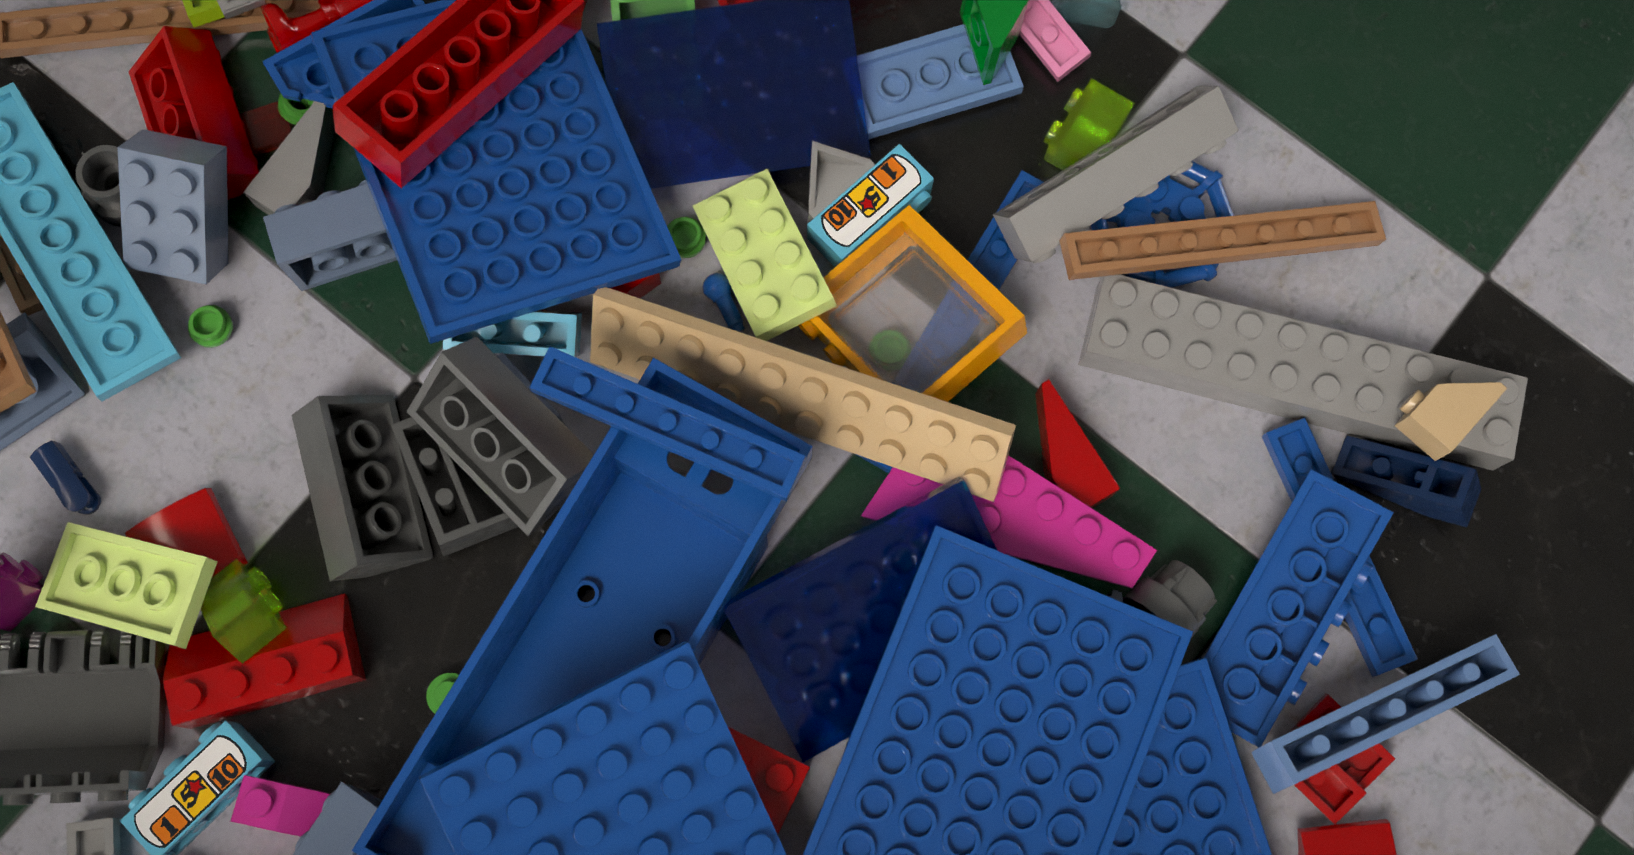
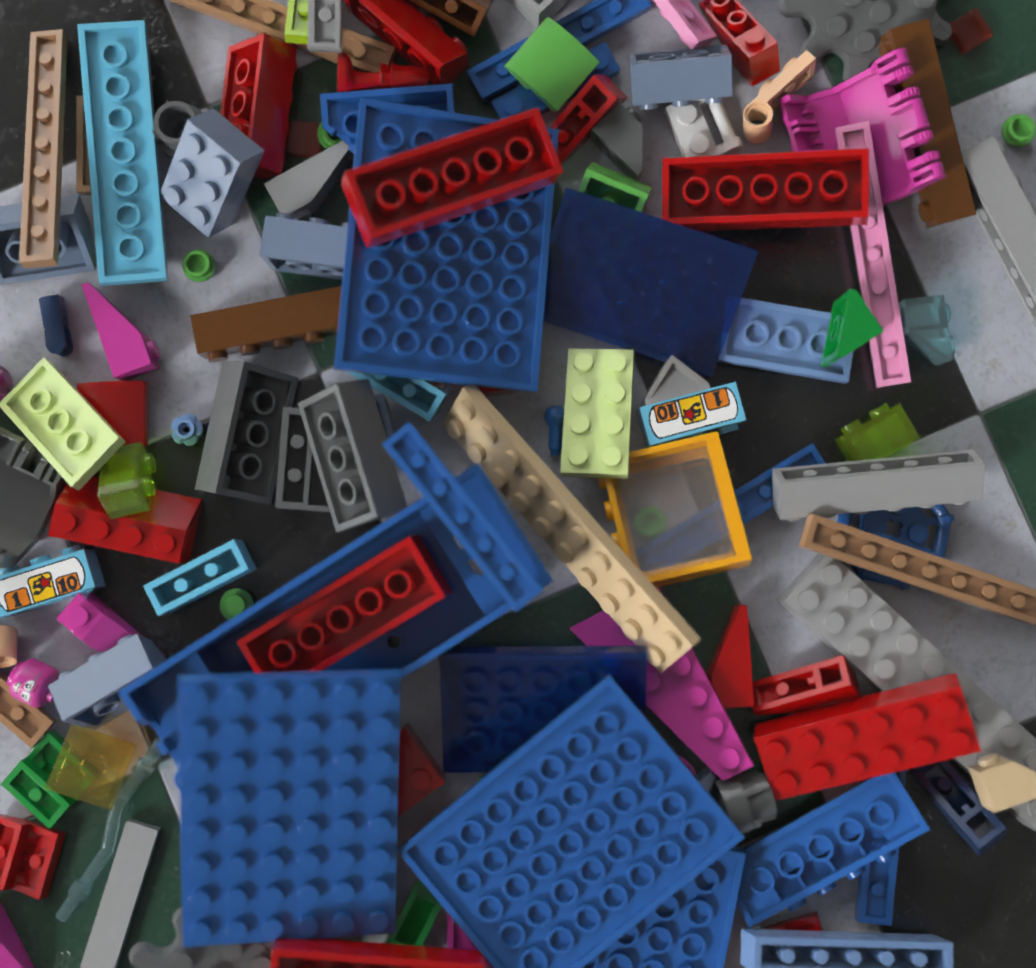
camera: 35 degrees right, 10 degrees up
(160, 454) = (125, 344): none -> dark pink slope
(296, 526) = (195, 429): none -> medium blue plate
(327, 347) = (267, 324): none -> reddish brown brick
(387, 681) = (200, 577): none -> medium azure brick
(591, 611) = (348, 611): none -> red brick
(687, 236) = (552, 368): bright green plate -> none
(1170, 438) = (806, 688): none -> red slope
(1265, 450) = (866, 737): none -> red brick

